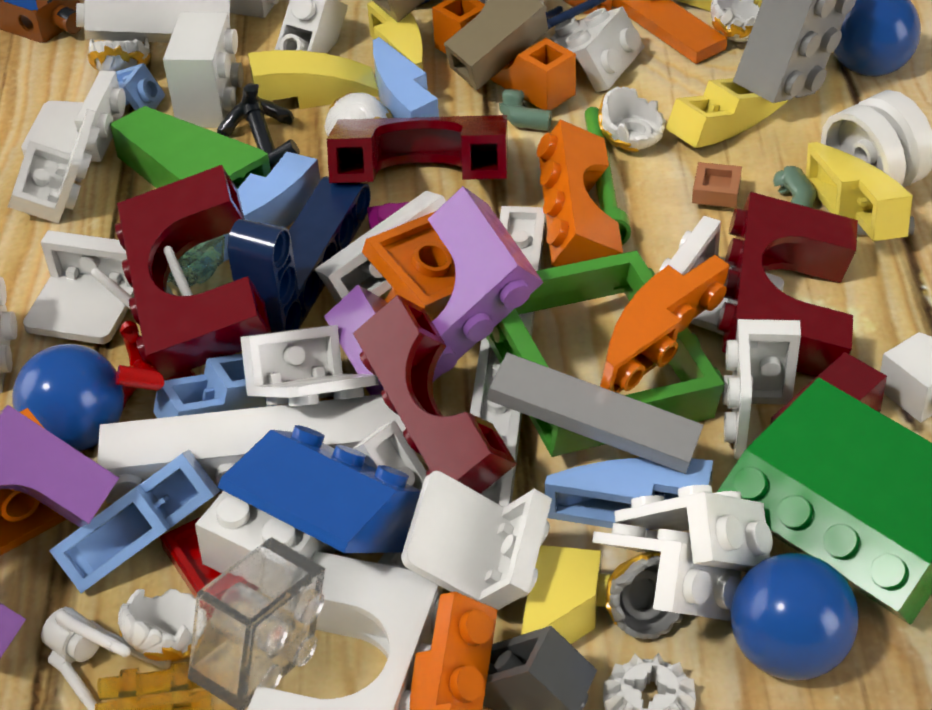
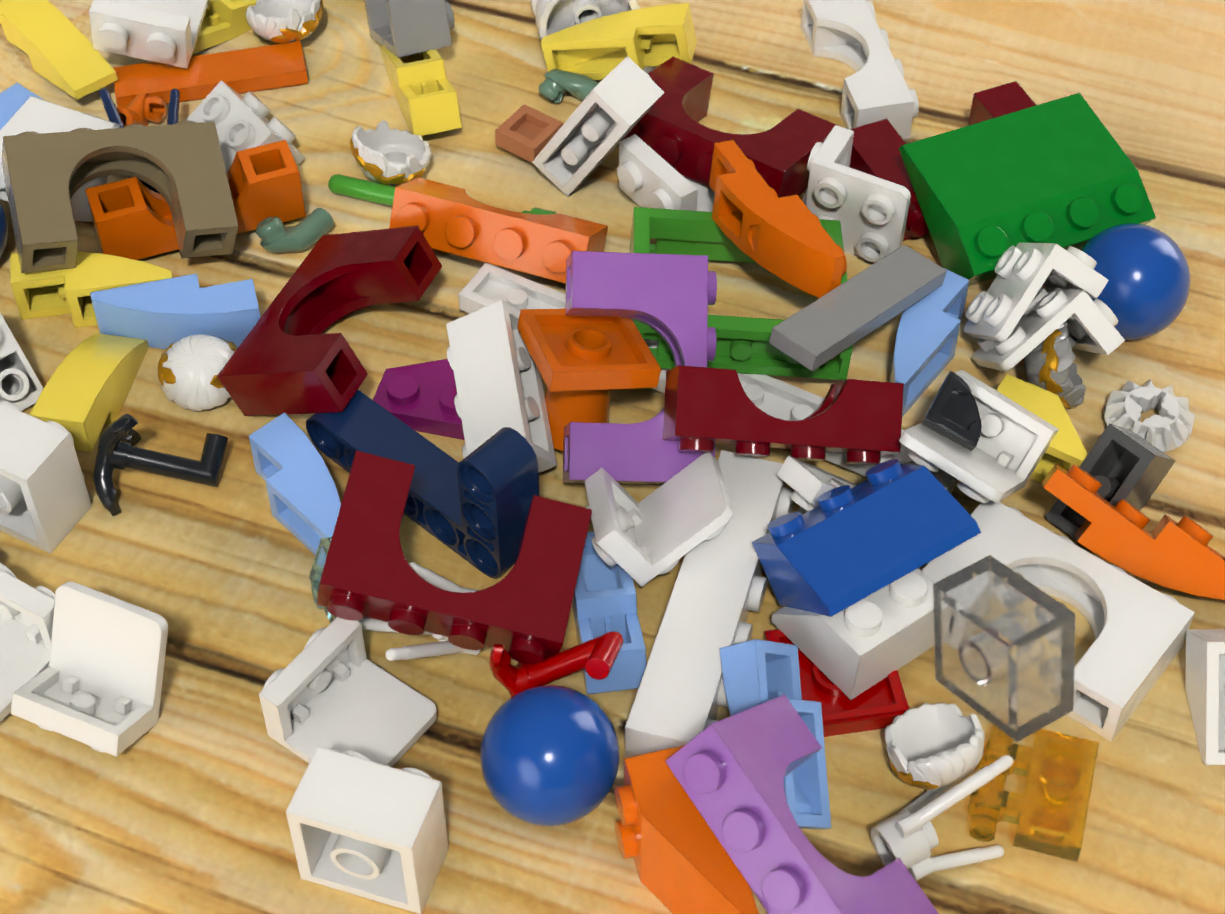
camera: 70 degrees left, 5 degrees up
(172, 149) = (171, 543): bright green slope -> none
(496, 508) = (955, 413): none -> black tile
(706, 186) = (598, 125): none -> white brick

